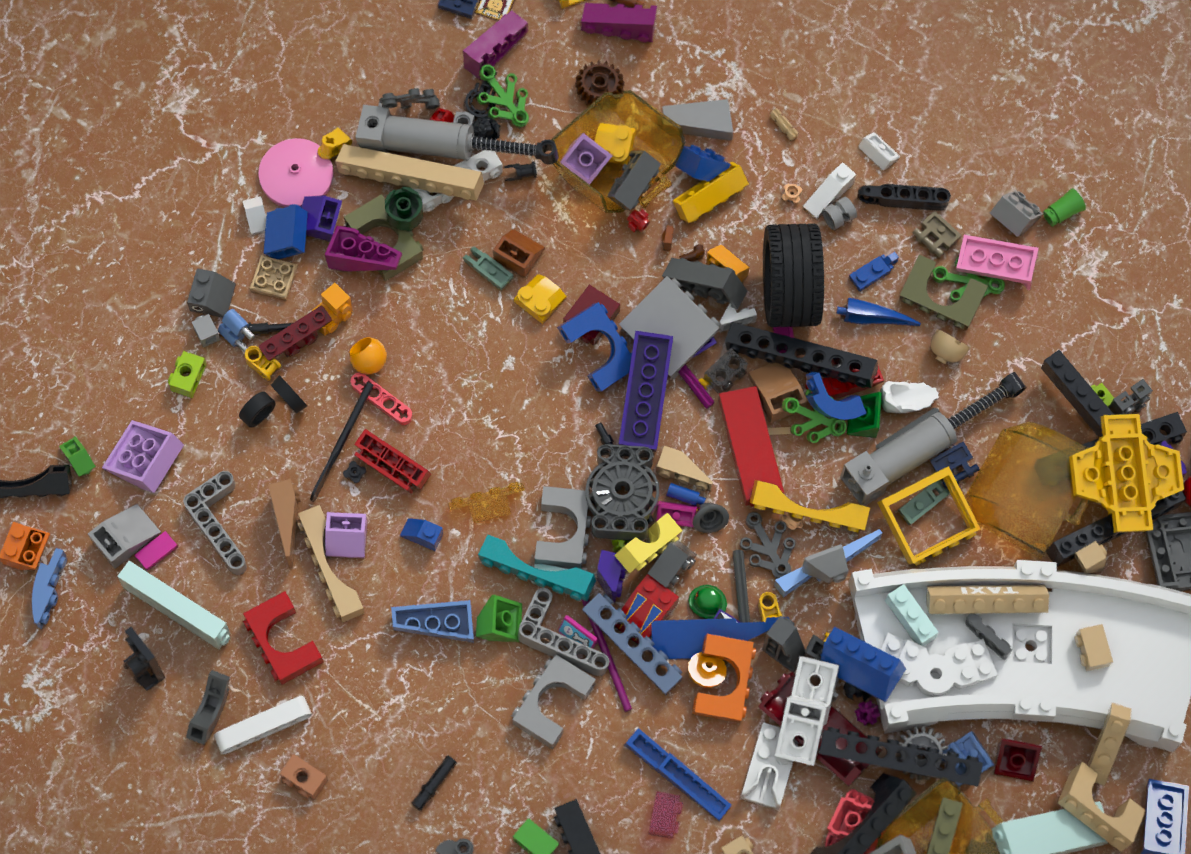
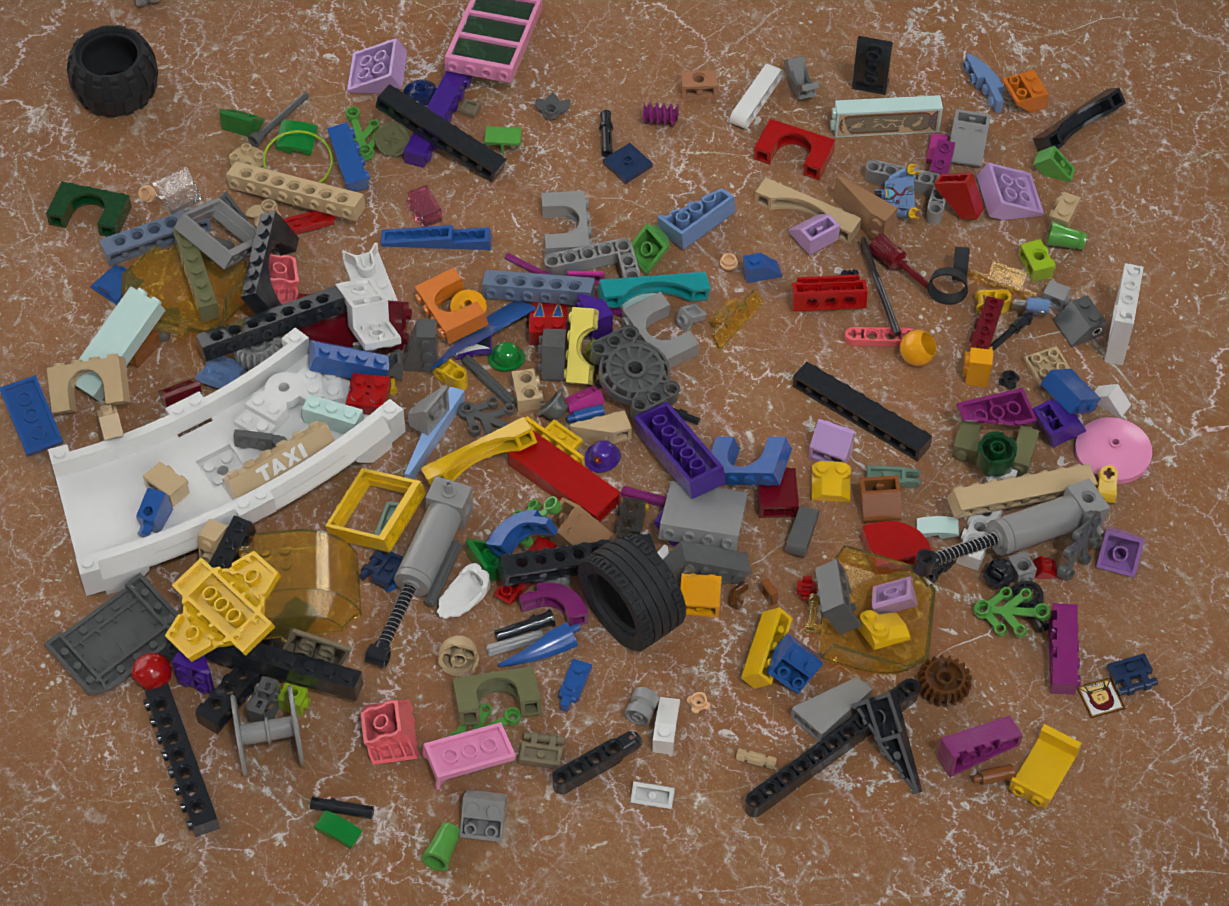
camera: 145 degrees right, 15 degrees down
(119, 400) = (1065, 209): none -> tan brick
(142, 378) = (1066, 237): none -> bright green plant
(171, 524) = (942, 157): none -> magenta brick
(175, 246) = (1124, 314): none -> white window
(194, 473) = (961, 194): none -> red slope
(230, 374) = (1004, 277): none -> clear yellow bracket
(242, 513) = (900, 192): none -> medium blue torso
(303, 459) = (894, 257): none -> dark red piece
(313, 283) = (1009, 375): none -> black plate
(367, 765) = (659, 114): none -> magenta piece
(373, 84) = (1120, 551): none -> medium lavender slope
(441, 736) = (627, 163): none -> dark blue plate
(443, 562) = (728, 261): none -> light nougat plate
(461, 339) = (862, 411): none -> black brick
(493, 203) = (938, 525): none -> light aqua slope
(516, 321) = (831, 442): none -> lavender slope
(522, 527) = (688, 315): none -> light grey bracket
(541, 209) = (894, 540): none -> red brick
(600, 269) = (802, 531): none -> dark grey beam
(675, 72) = (887, 724): none -> black wedge
(701, 448) = (602, 456): none -> dark purple hat
(723, 553) = (526, 390): none -> tan brick
(726, 484) = (560, 437): none -> yellow bracket
(732, 88) = (822, 750): none -> black beam
(830, 334) = (558, 597): none -> magenta arch
(865, 619) = (368, 392): none -> red piece
(868, 337) = (535, 623): none -> black pin
(894, 334) = (513, 643): none -> light grey axle
(1041, 324) = (389, 731): none -> coral slope
(1065, 410) = (314, 646): none -> dark tan slope
(1122, 294) = (340, 807): none -> black pin
(1124, 620) = (153, 512): none -> blue torso
(1131, 275) = (338, 828): none -> green slope
(1147, 364) = (266, 730): none -> light grey piece

